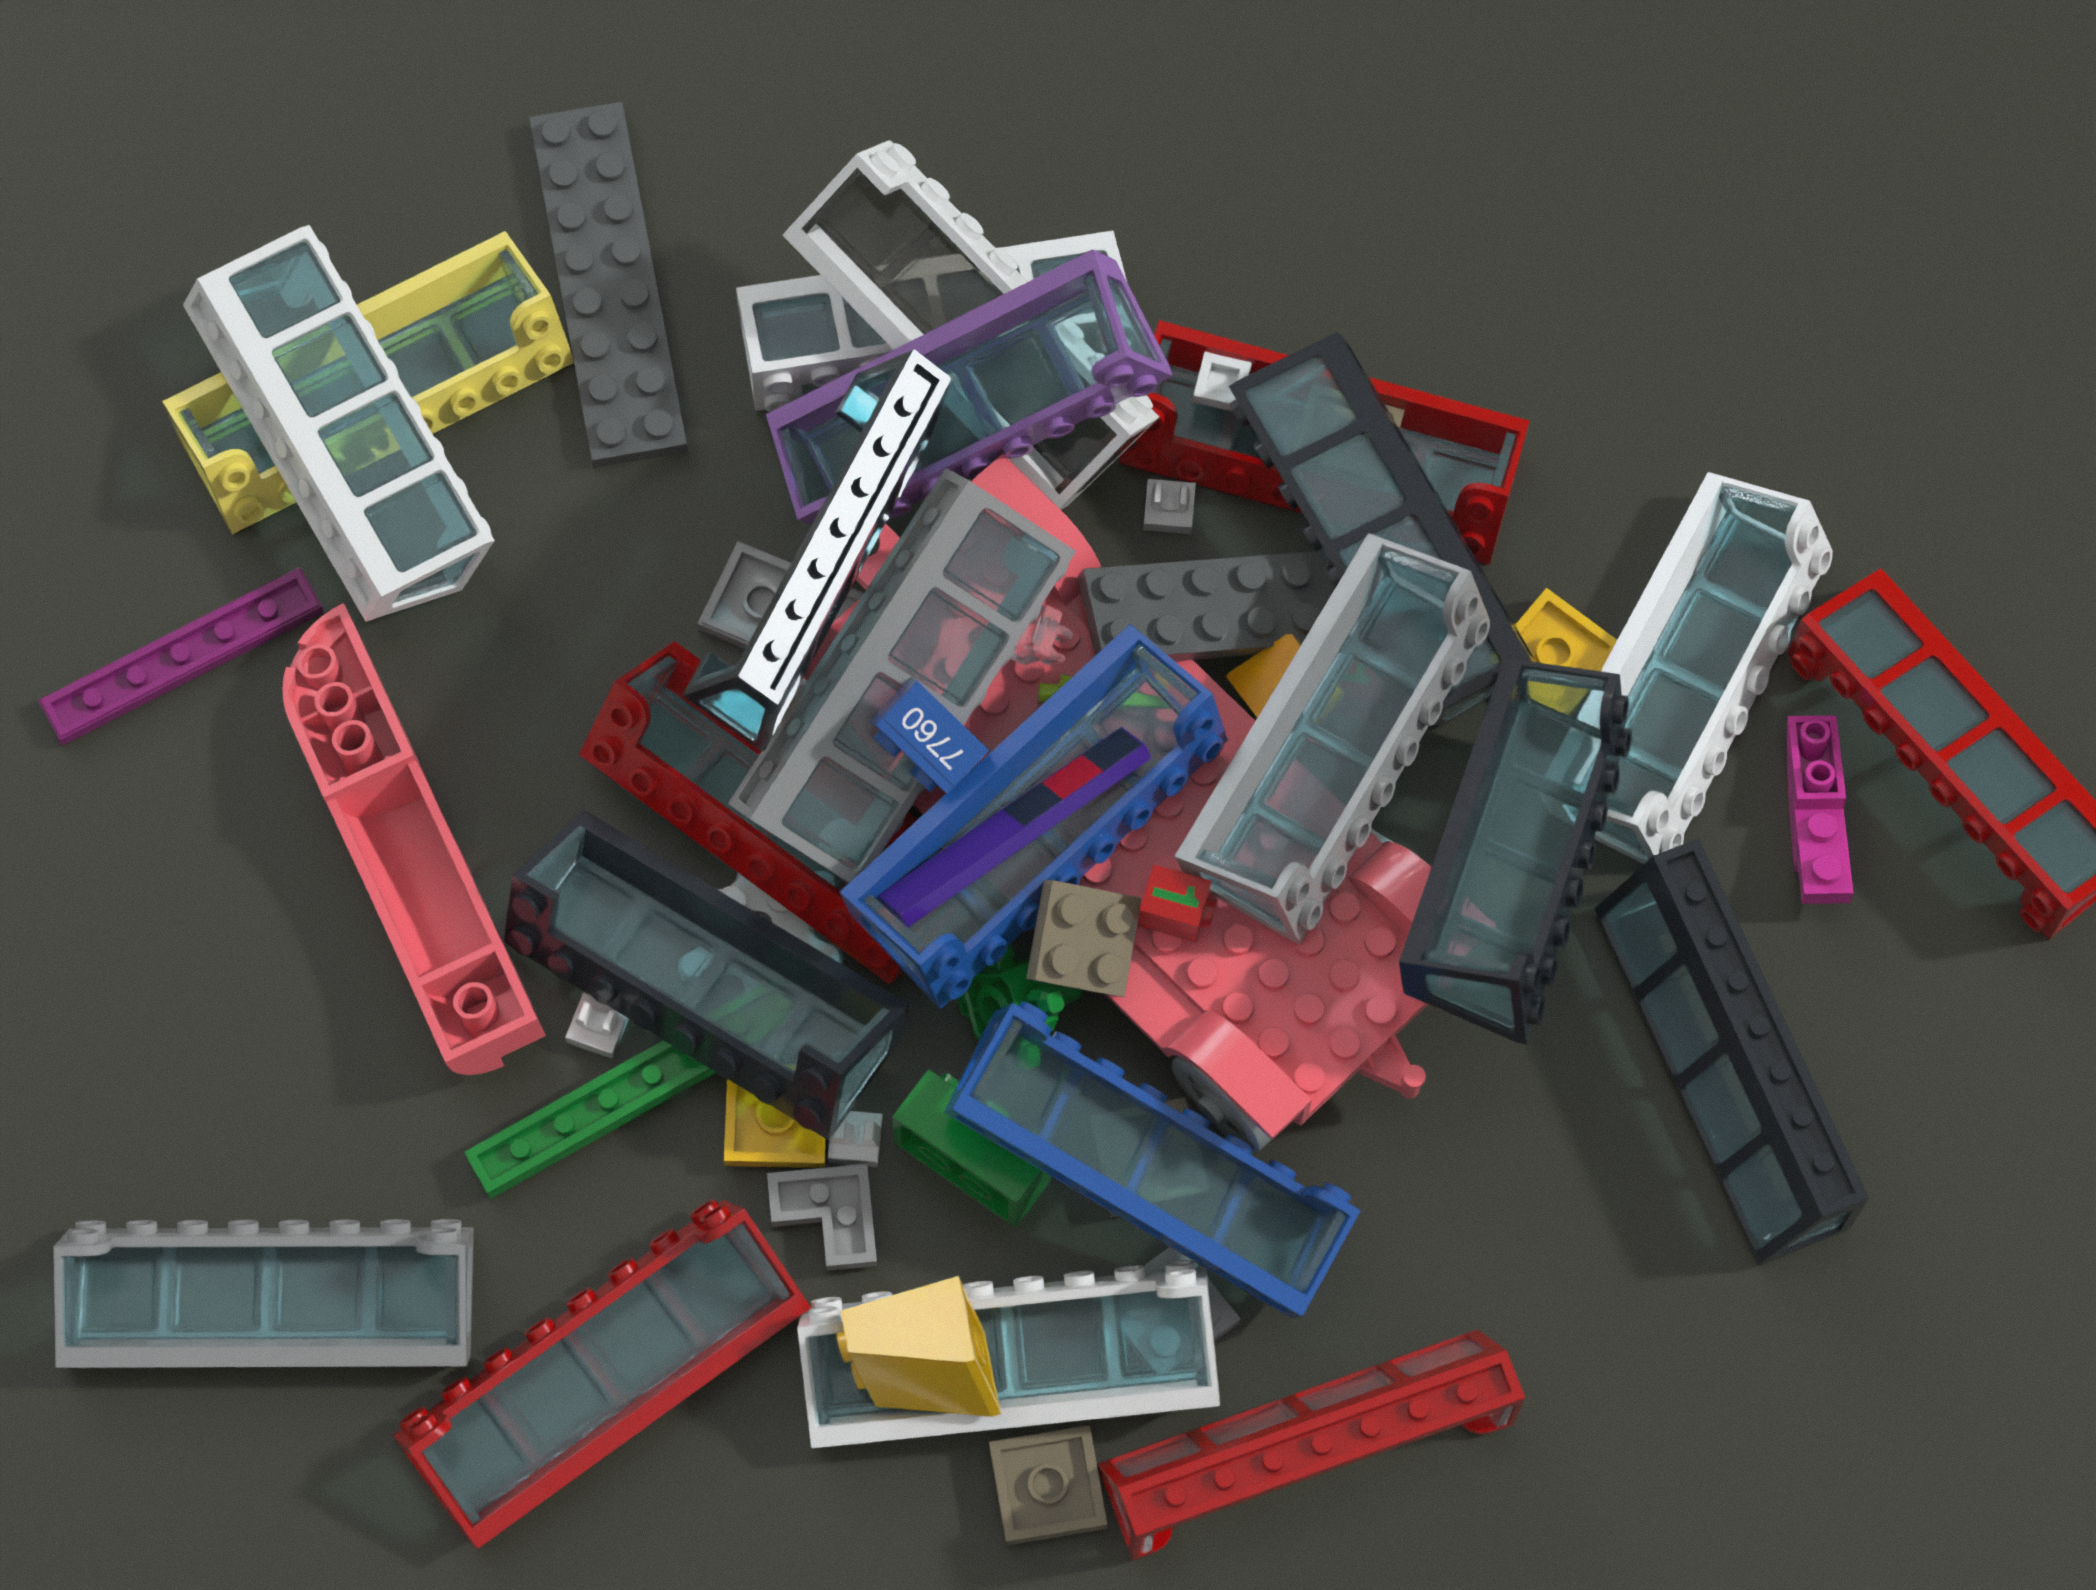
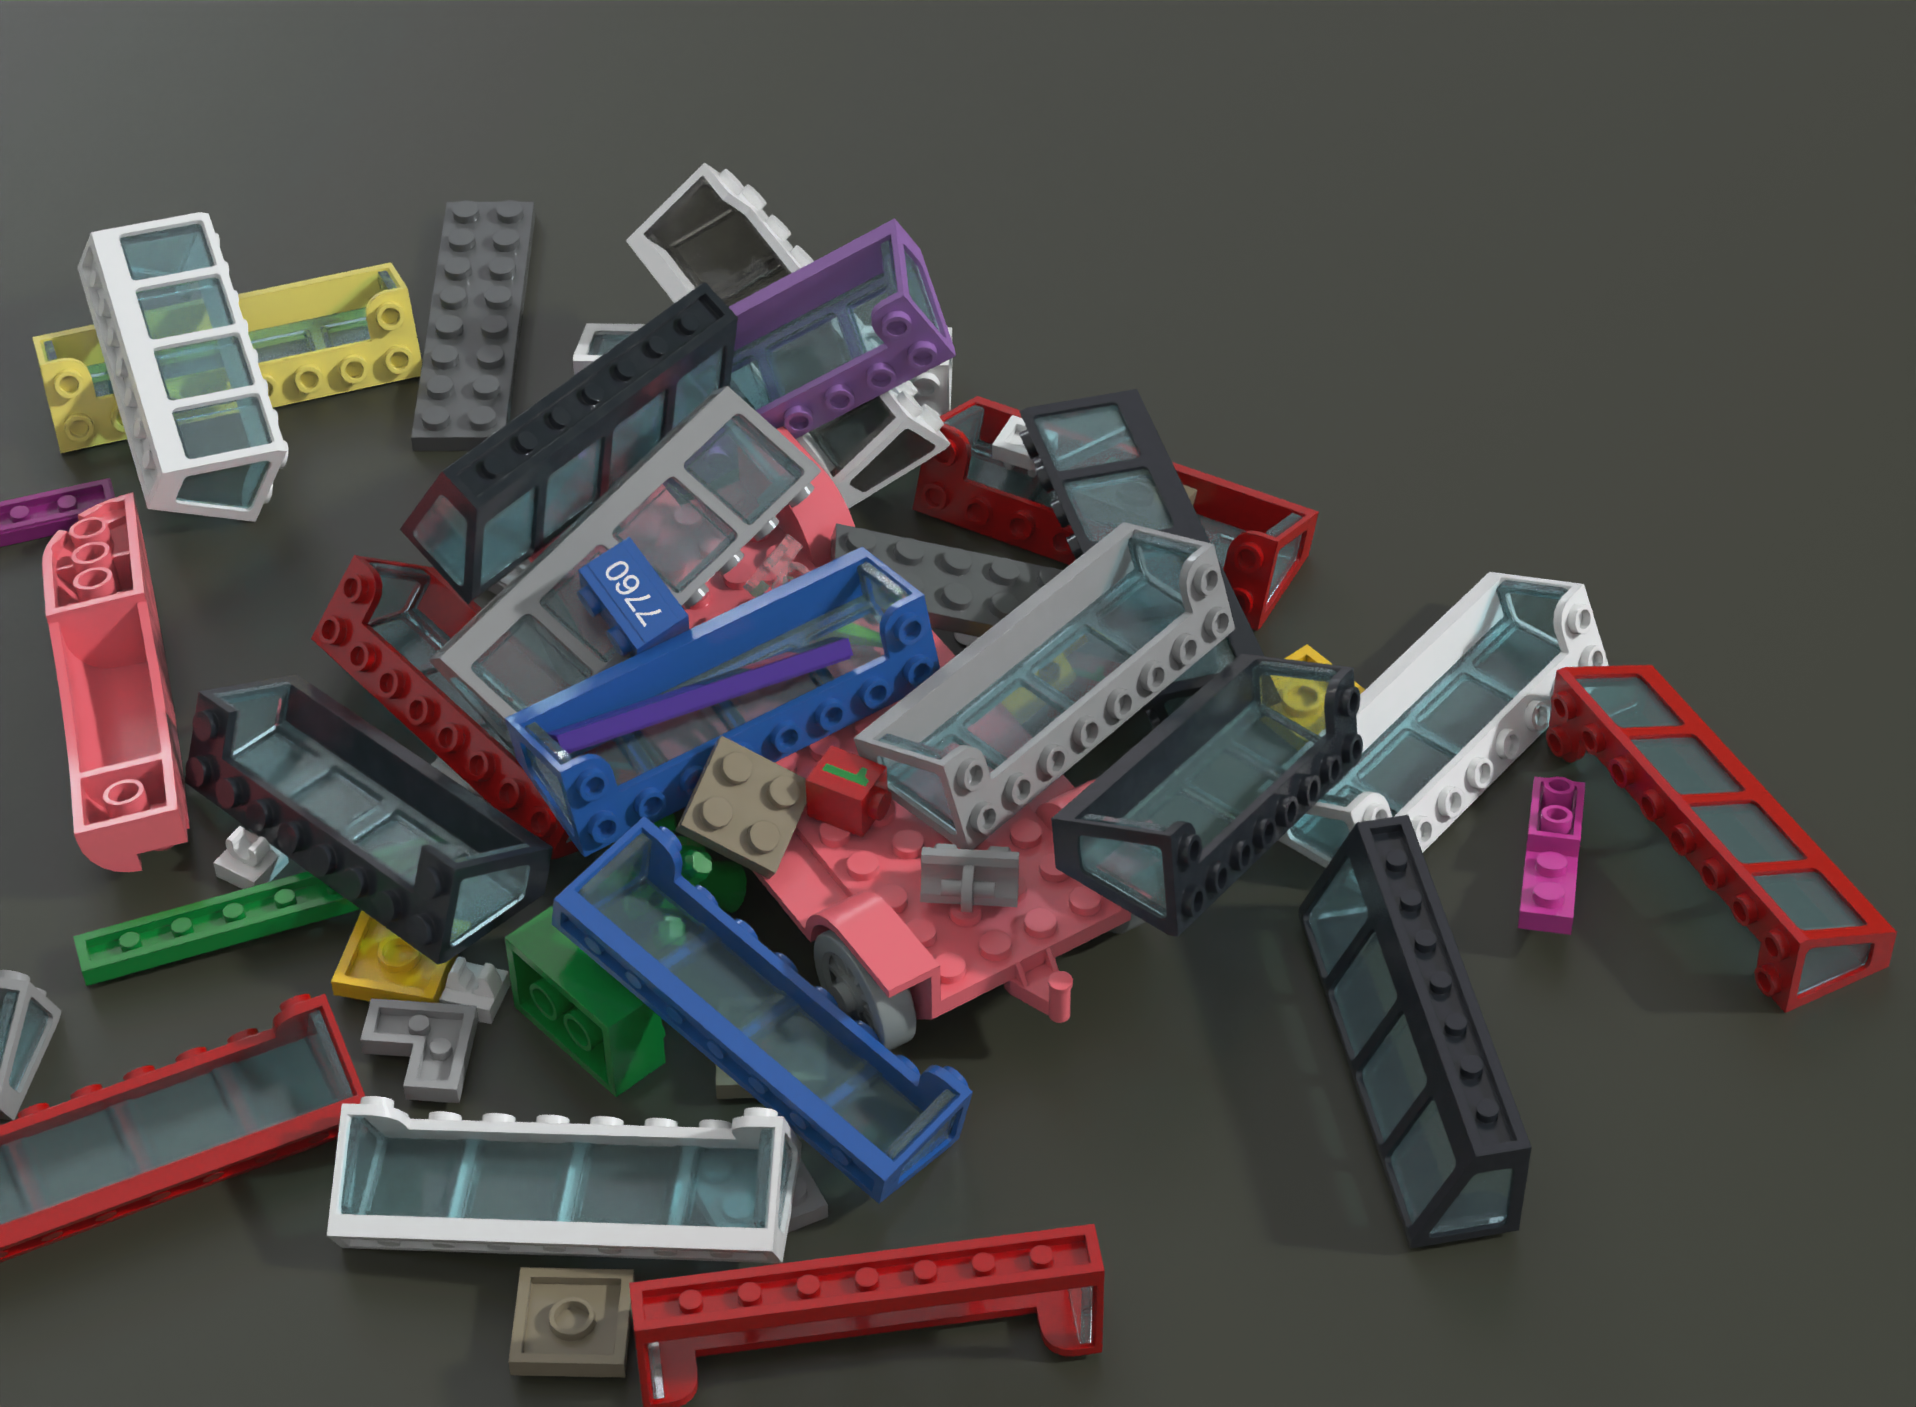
camera: 15 degrees right, 25 degrees down
(921, 1351) = (465, 1146): yellow slope -> none
(1169, 506) = (954, 534): white tile -> none
(1311, 986) = (969, 876): none -> light grey hips

